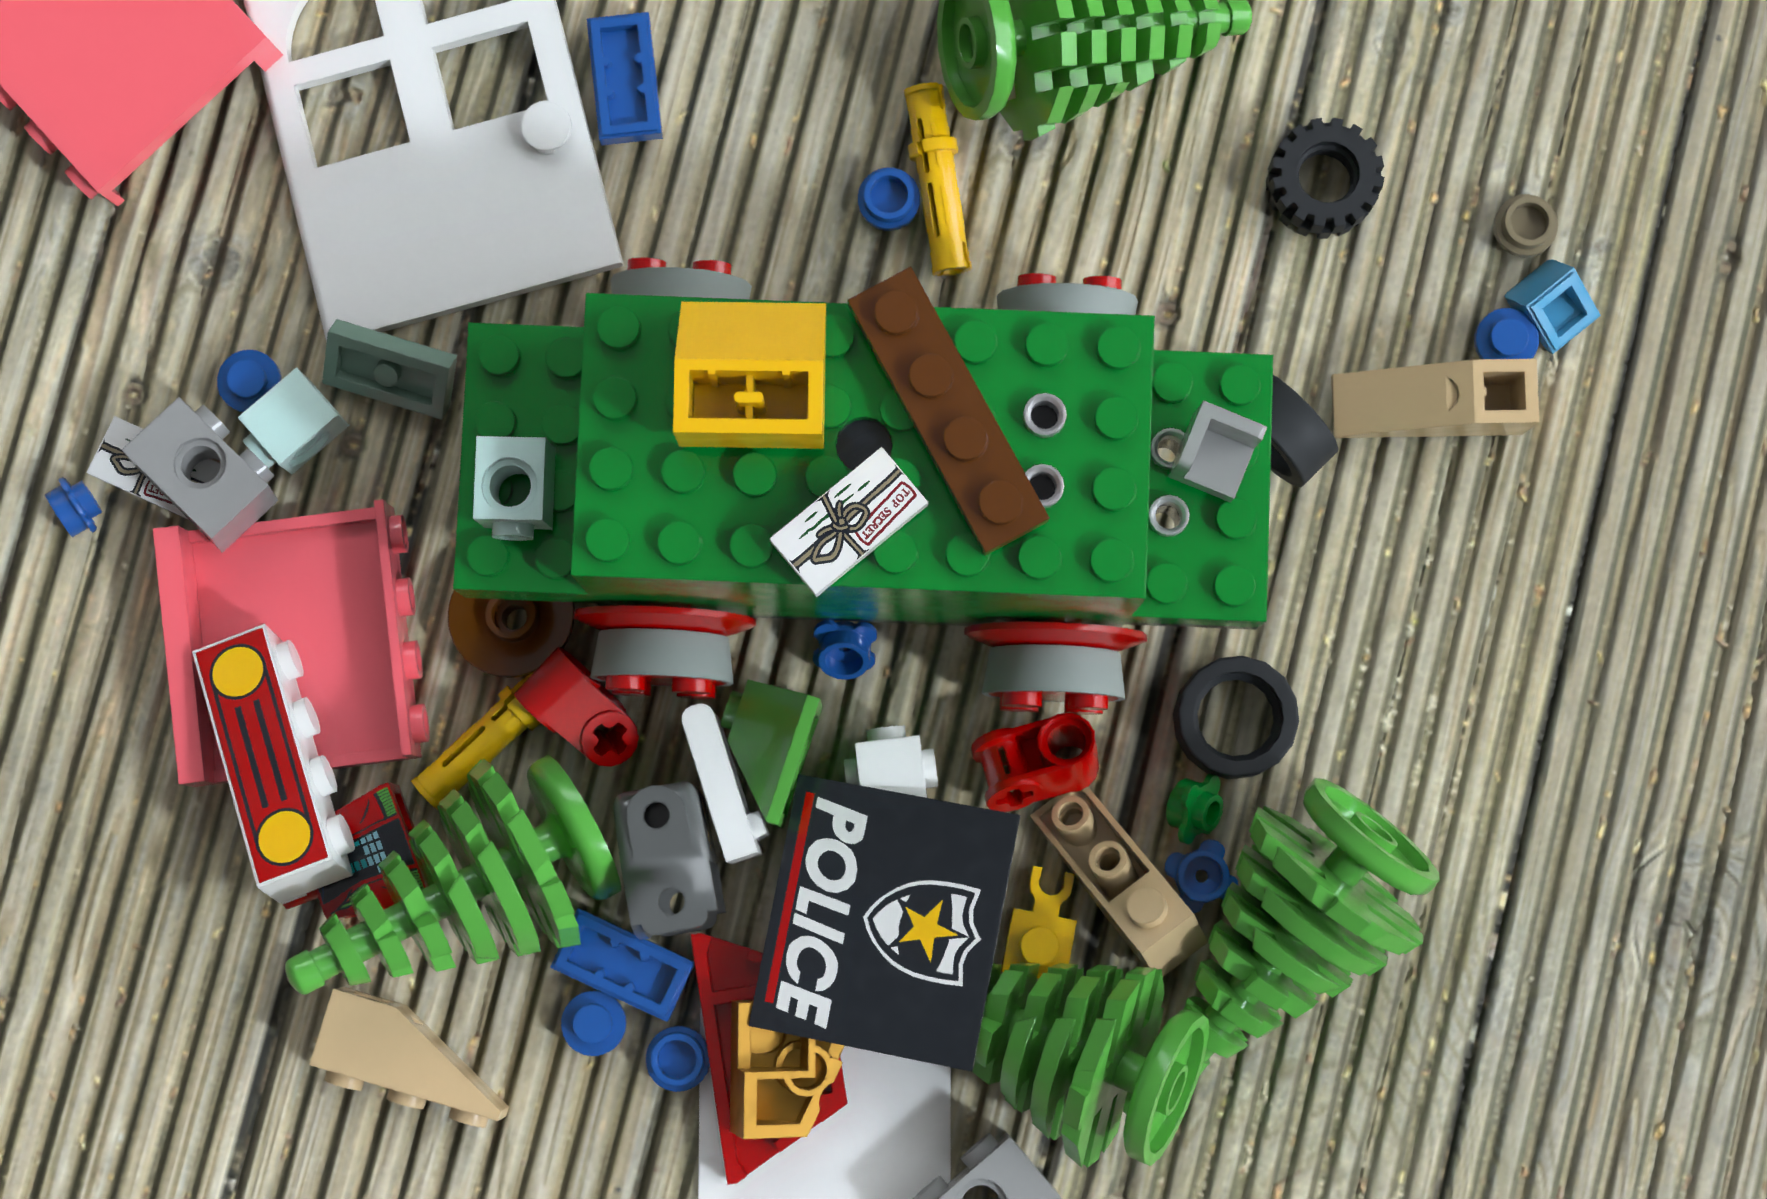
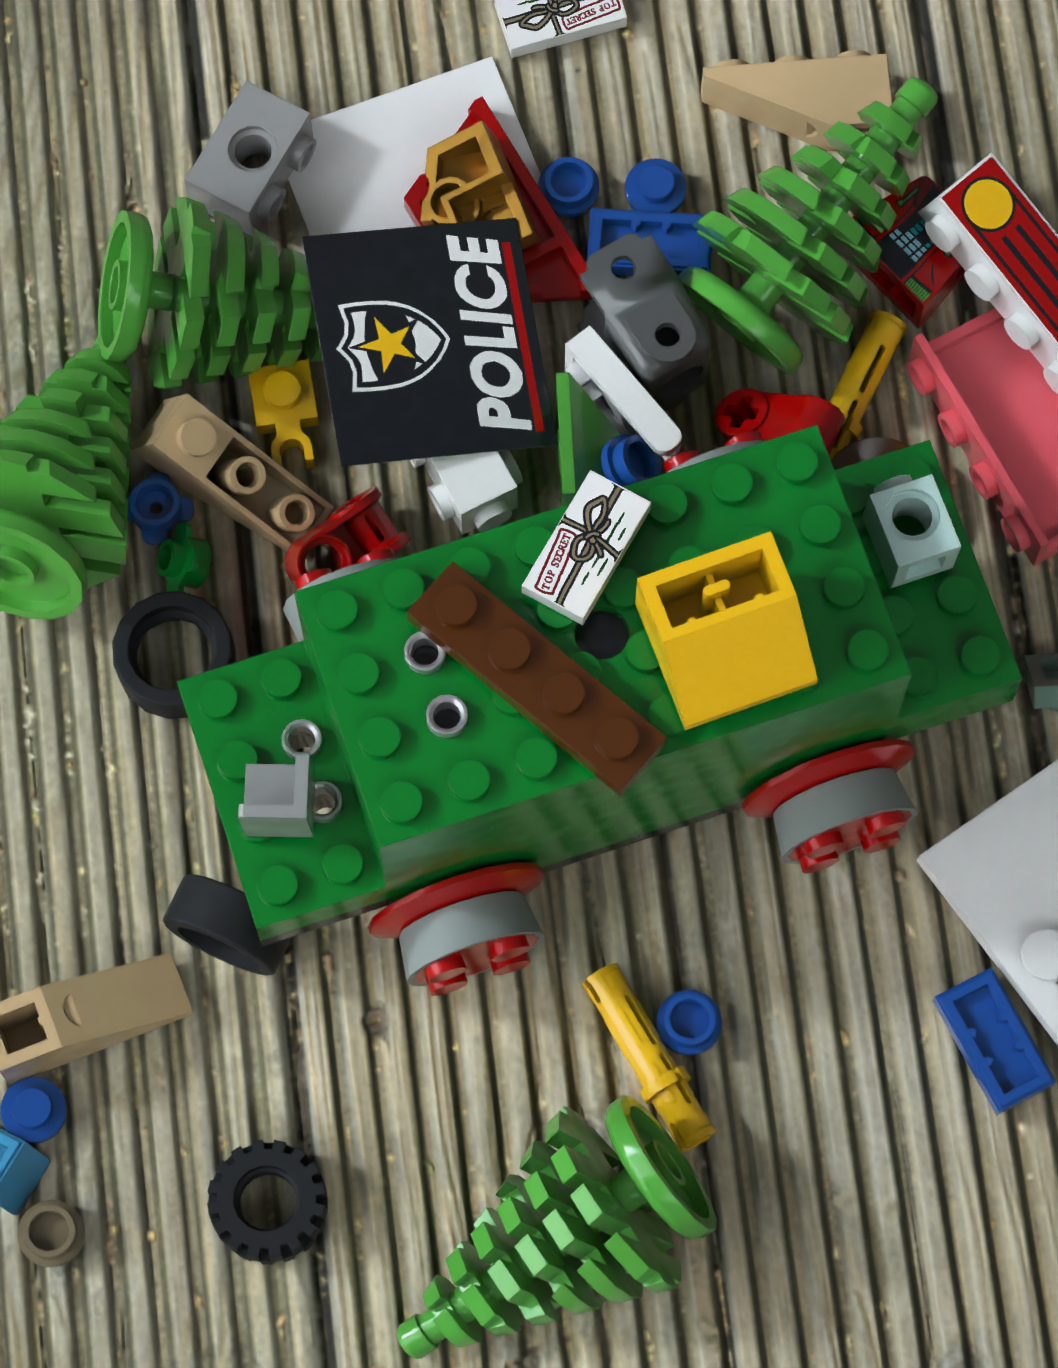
camera: 160 degrees right, 10 degrees down
(742, 712) = (629, 460): none -> blue plate

